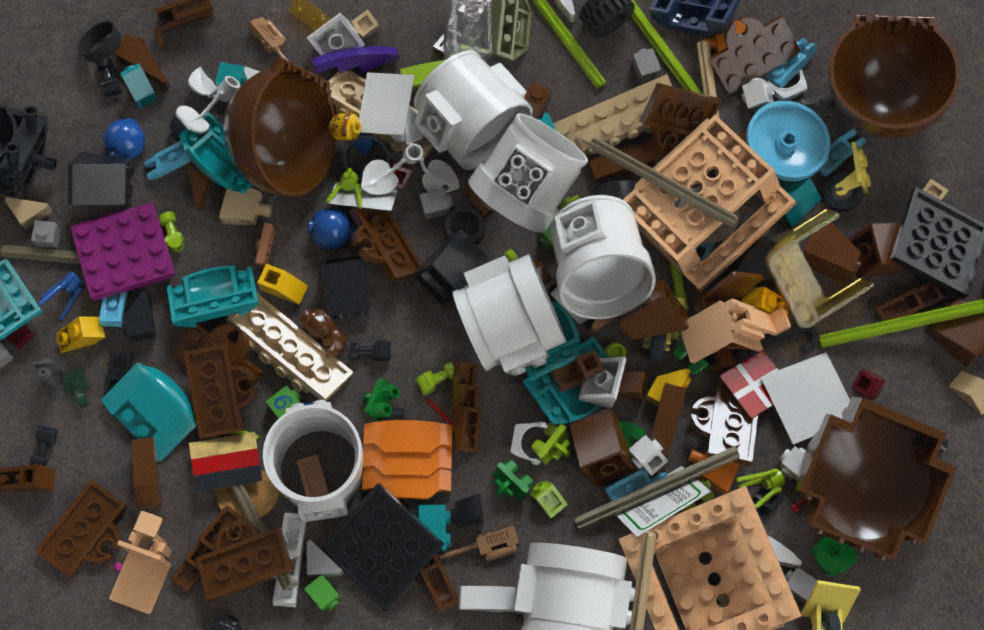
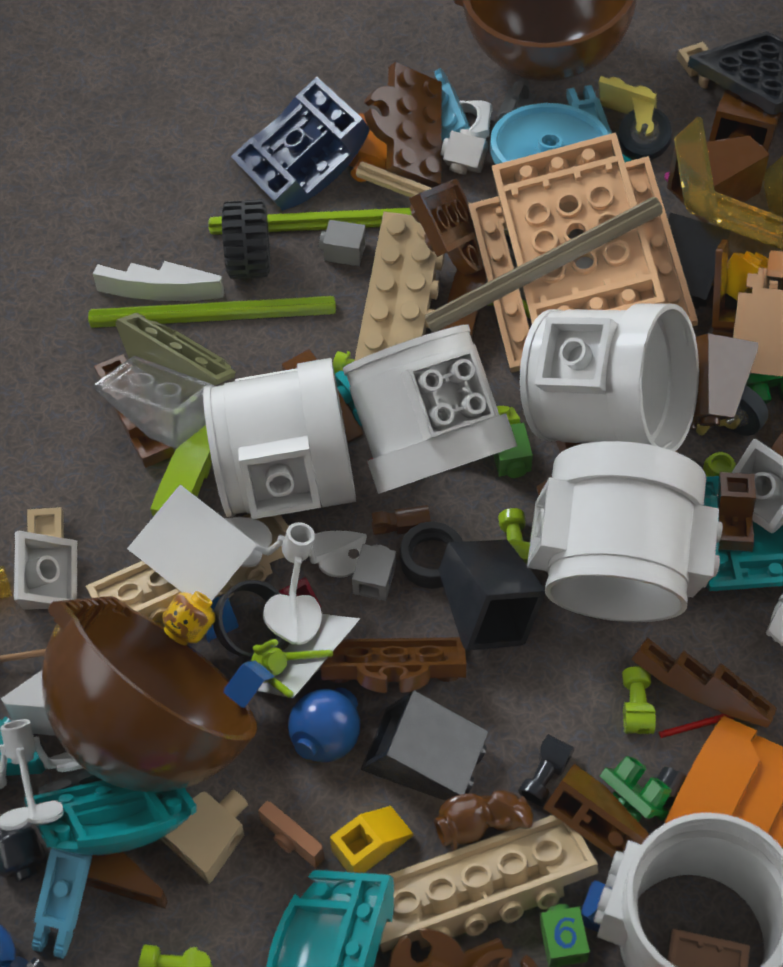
camera: 60 degrees left, 15 degrees down
(325, 176) = (247, 682): none -> blue slope
(355, 385) = (594, 812): none -> reddish brown slope
(364, 57) = (94, 552): dark purple slope -> none
(560, 112) = (341, 360): none -> lime plate
(617, 189) = (501, 351): black slope -> none

